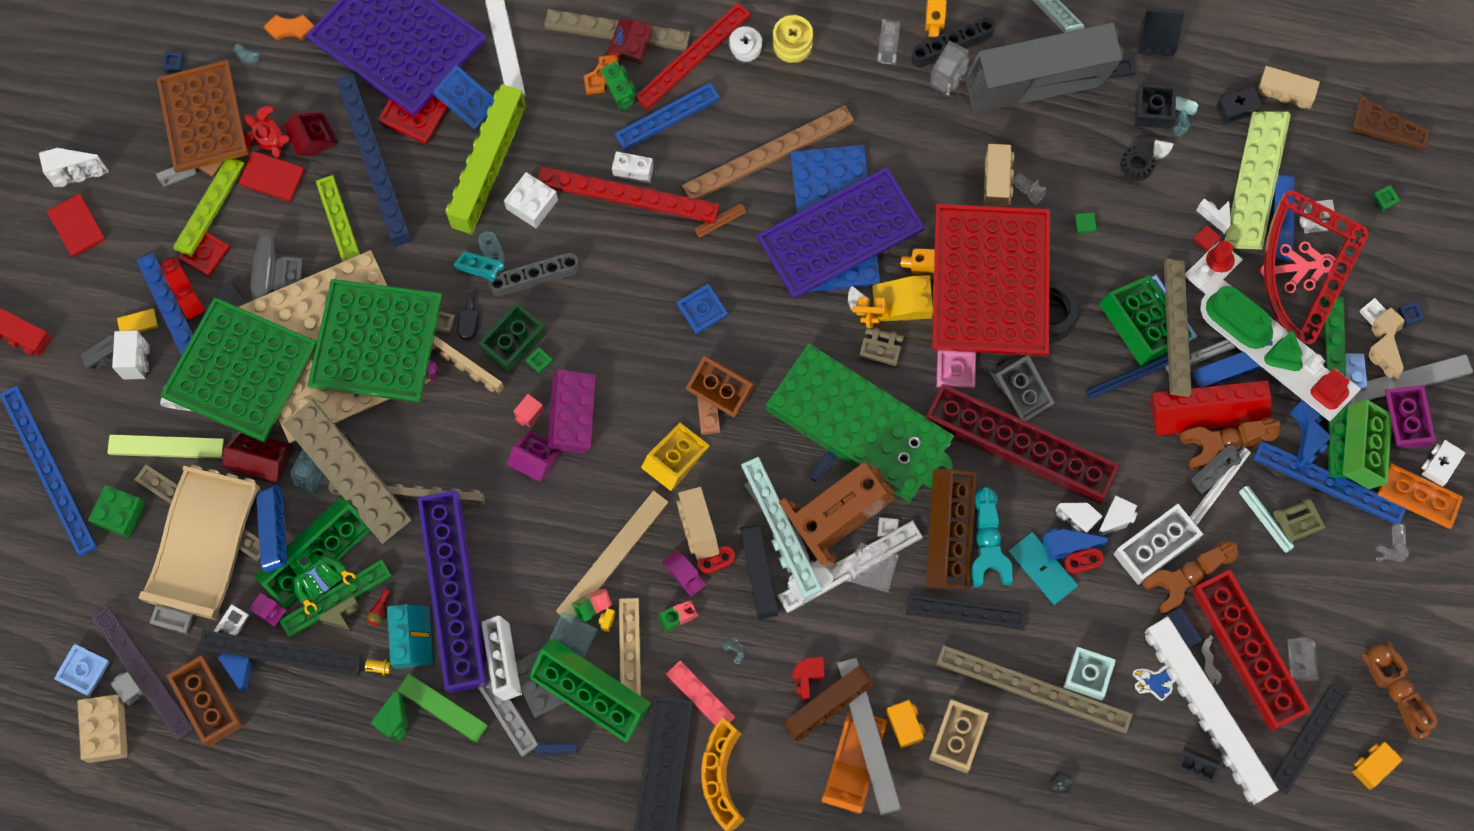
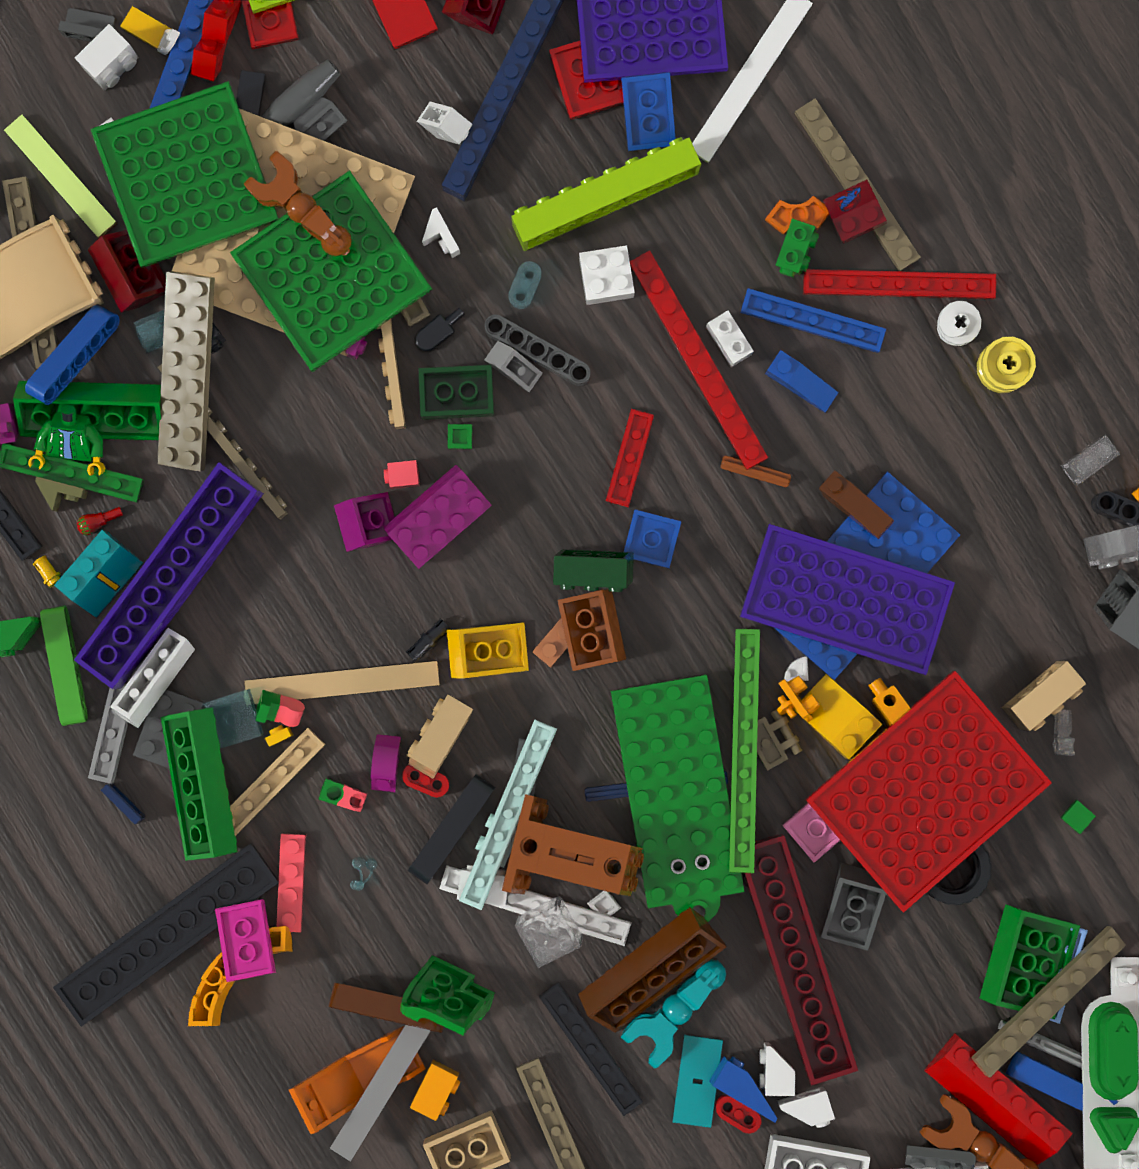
camera: 40 degrees right, 15 degrees up
(156, 314) = (168, 41): none -> white tile
(324, 319) = (300, 206): none -> dark orange piece
(337, 218) = (409, 130): lime tile -> none
(359, 206) = (445, 123): none -> white brick
(415, 265) = (437, 229): none -> white slope
(479, 265) = (495, 291): teal plate -> none
(529, 294) = (513, 366): none -> light grey slope
(636, 485) = (428, 640): none -> black pin
(645, 281) = (629, 458): none -> red tile
(687, 351) = (593, 569): none -> dark green brick
(693, 151) = (801, 381): none -> blue slope
(708, 748) = (245, 940): none -> dark pink tile
(768, 153) = (866, 452): medium nougat plate -> none
(788, 182) = (855, 504): none -> reddish brown slope
(807, 670) = (401, 958): red brick -> none
(852, 658) = (446, 996): none -> green slope
(873, 363) = (744, 751): none -> bright green plate
(1127, 377) = (957, 995): dark blue axle -> none

